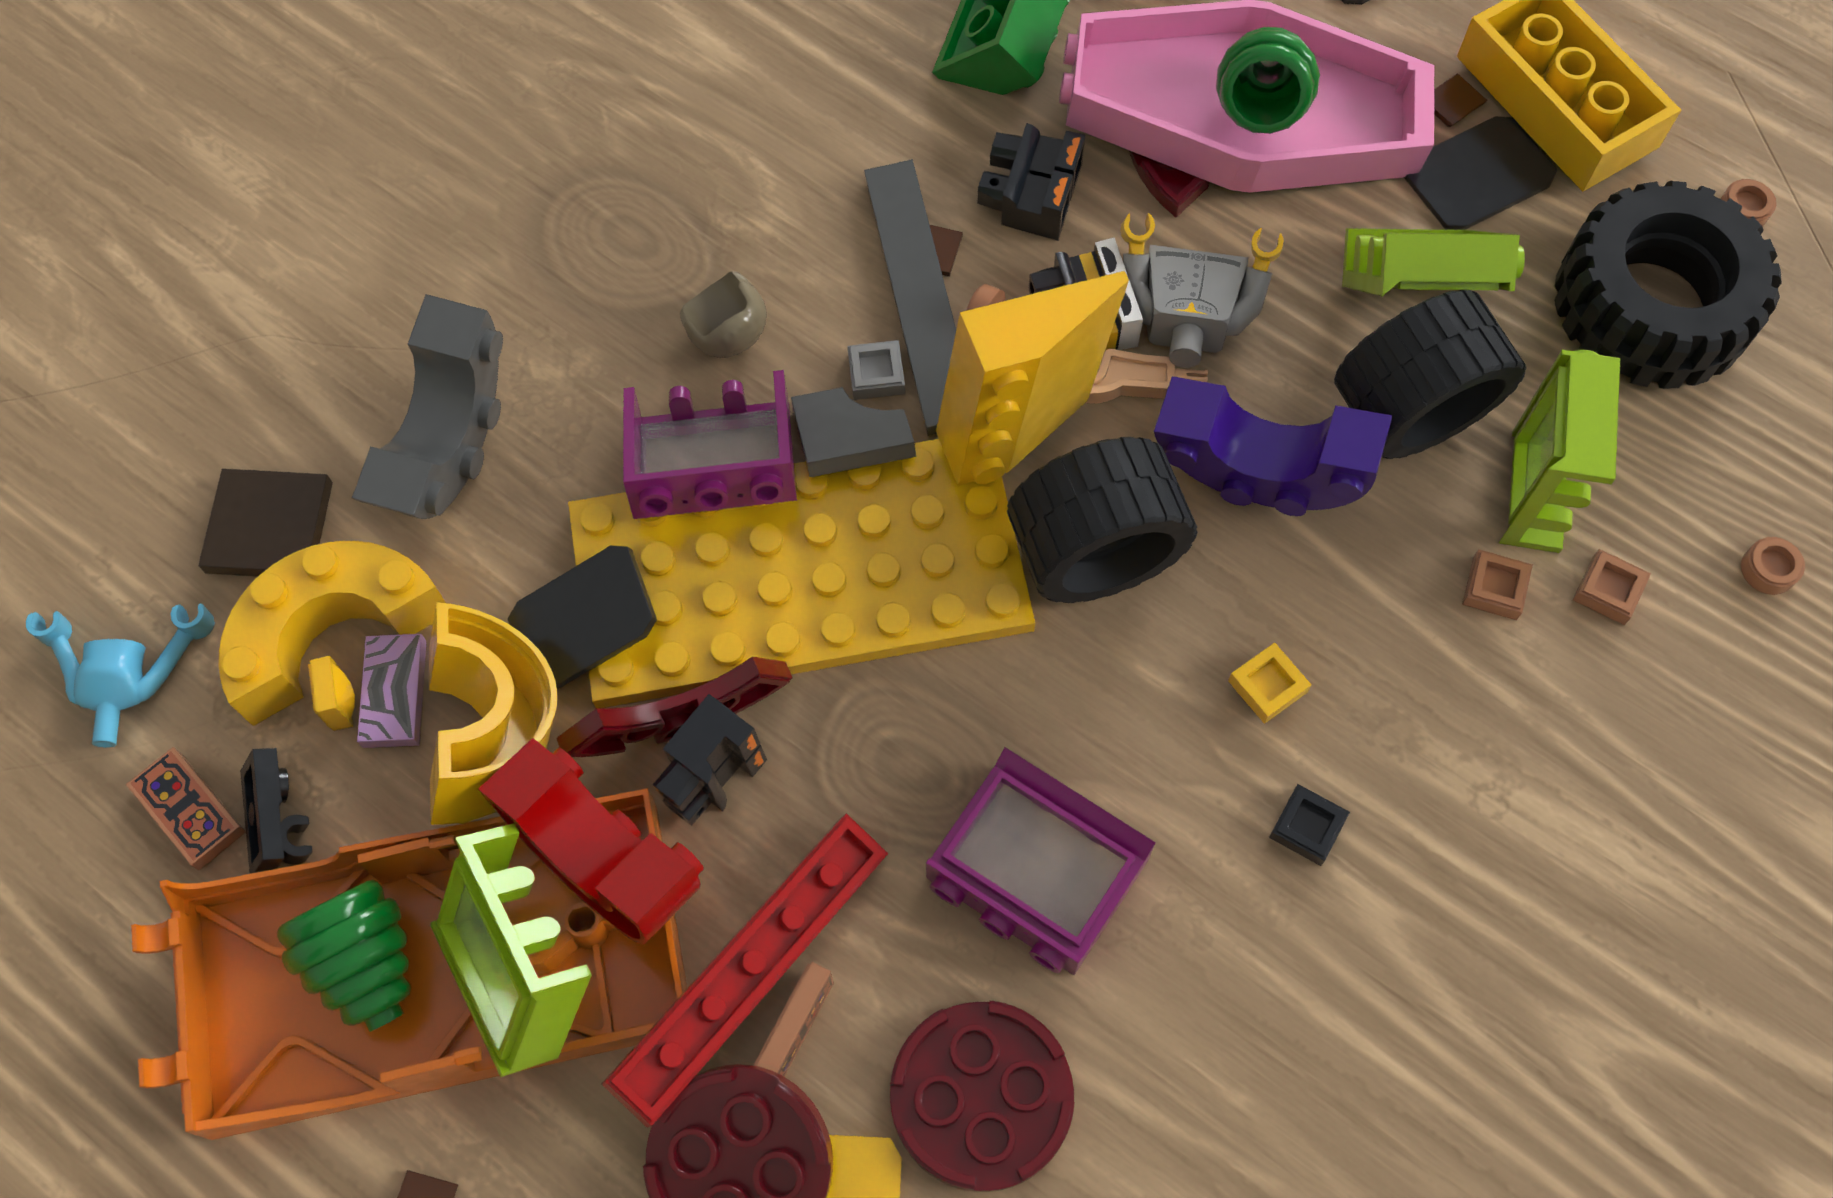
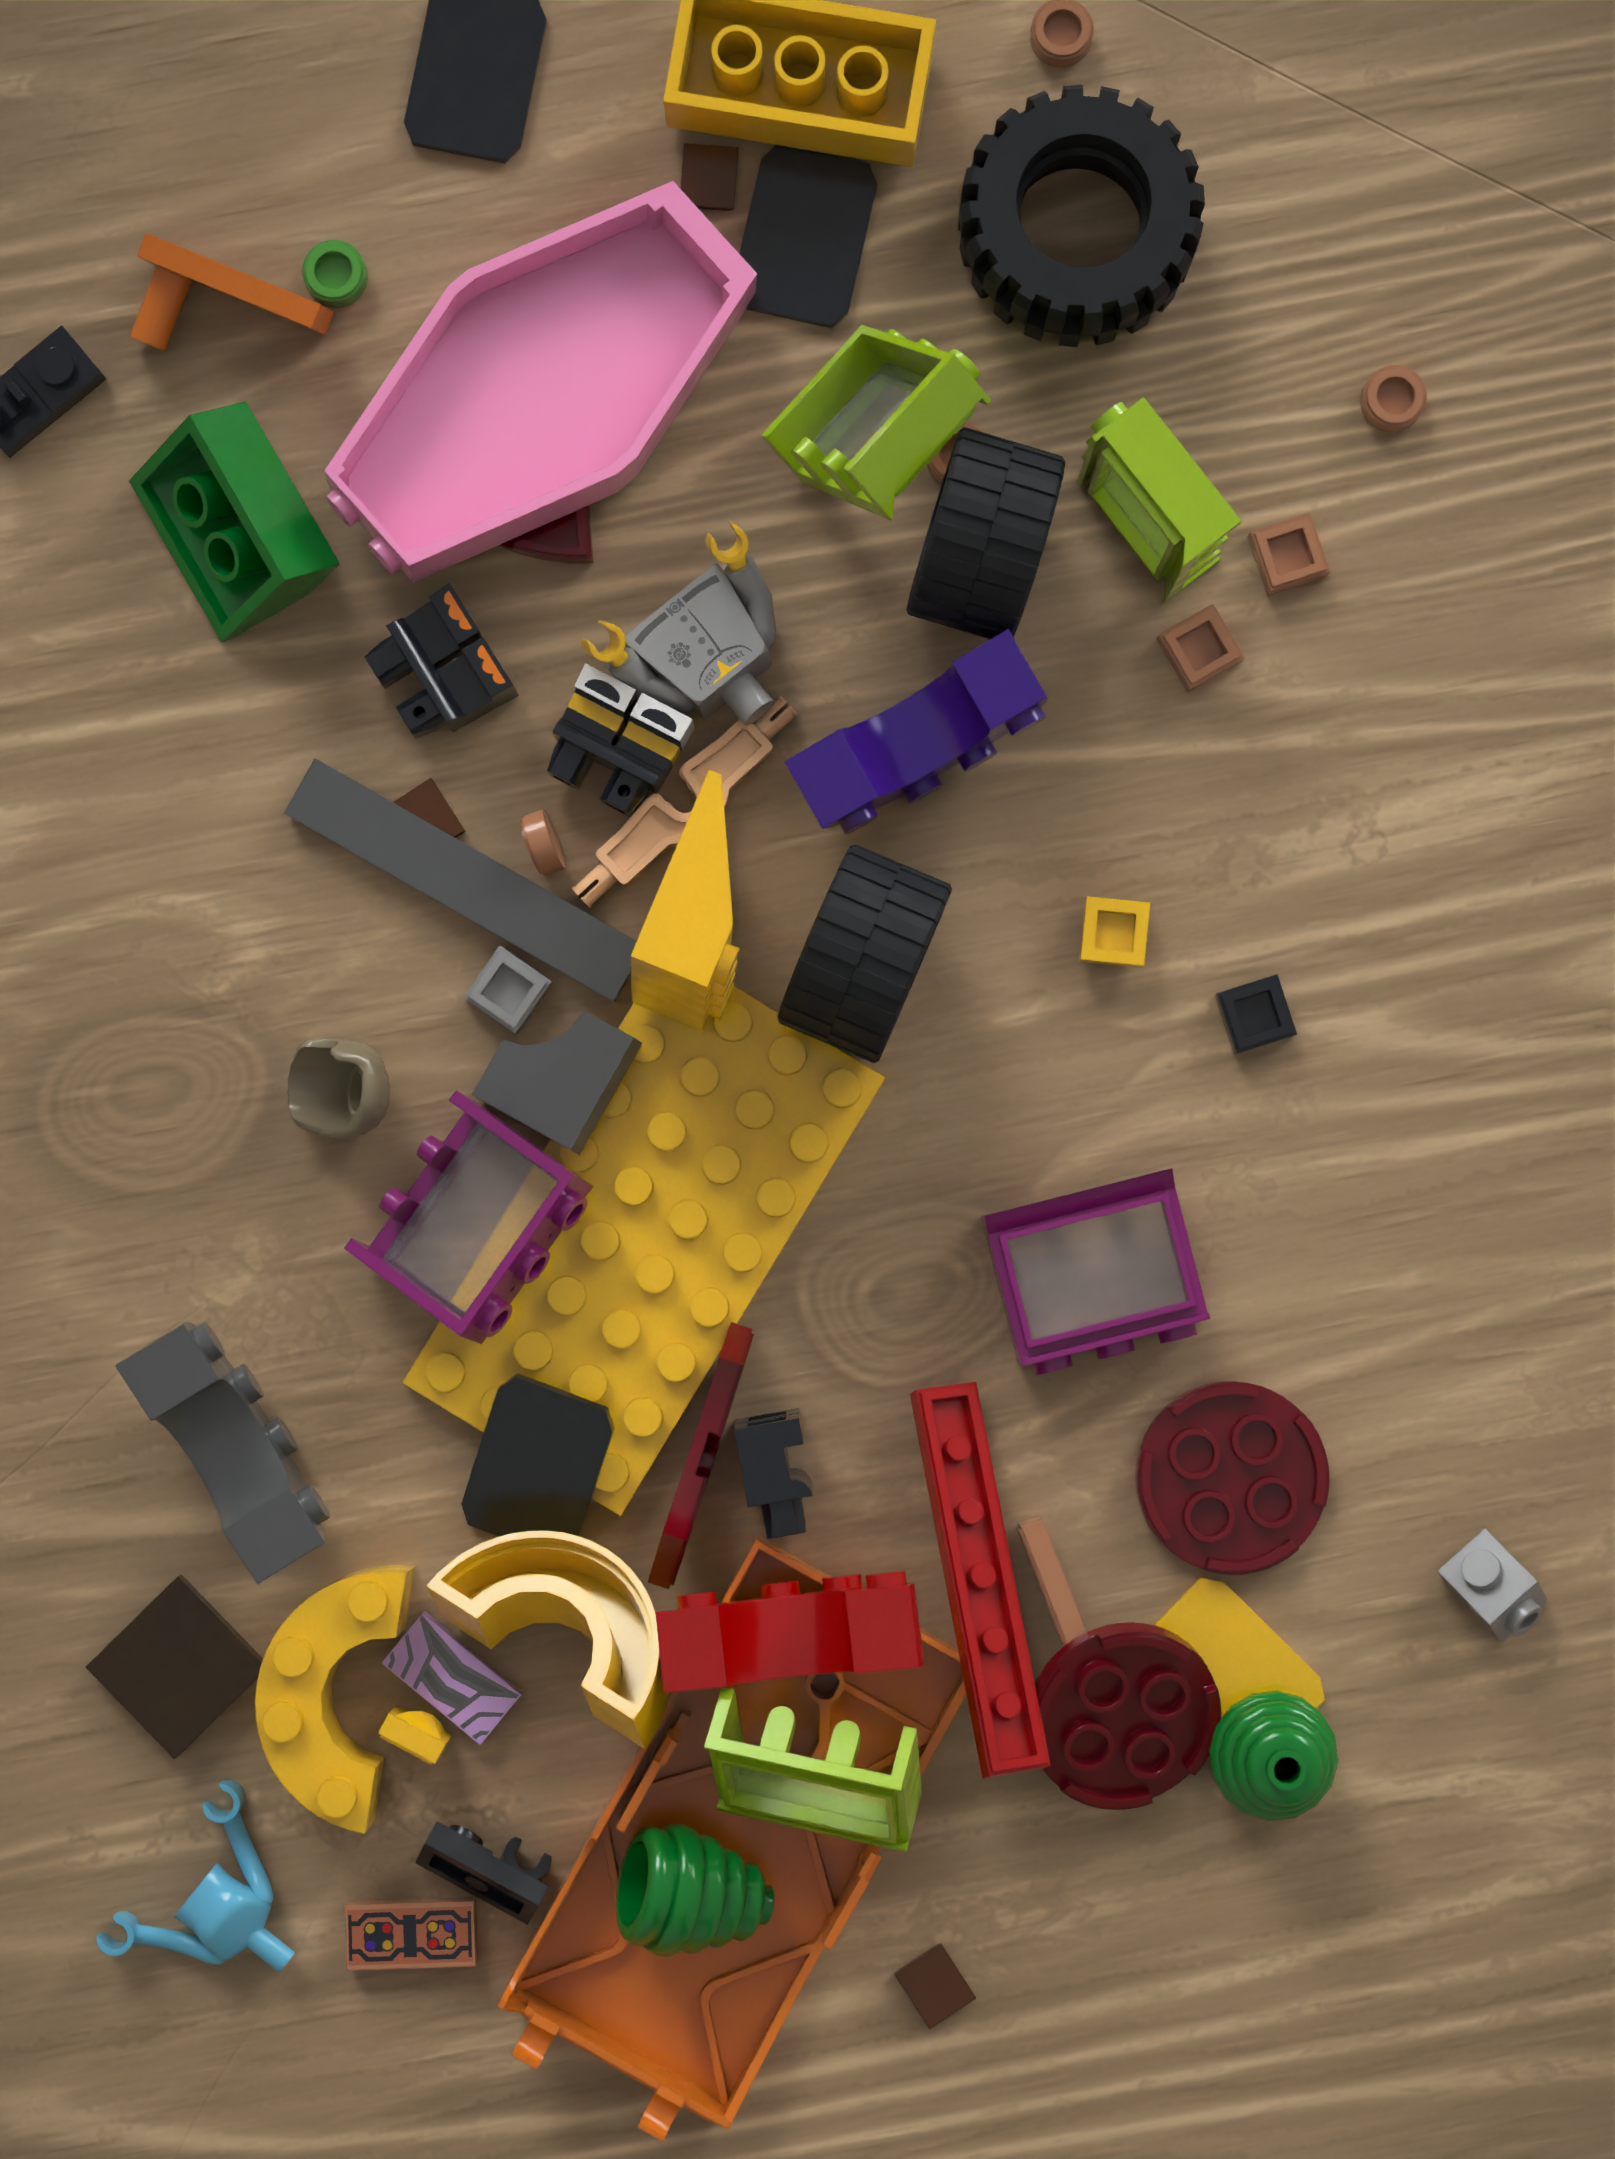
camera: 45 degrees left, 20 degrees up
(1267, 80) = (564, 375): green piece -> none

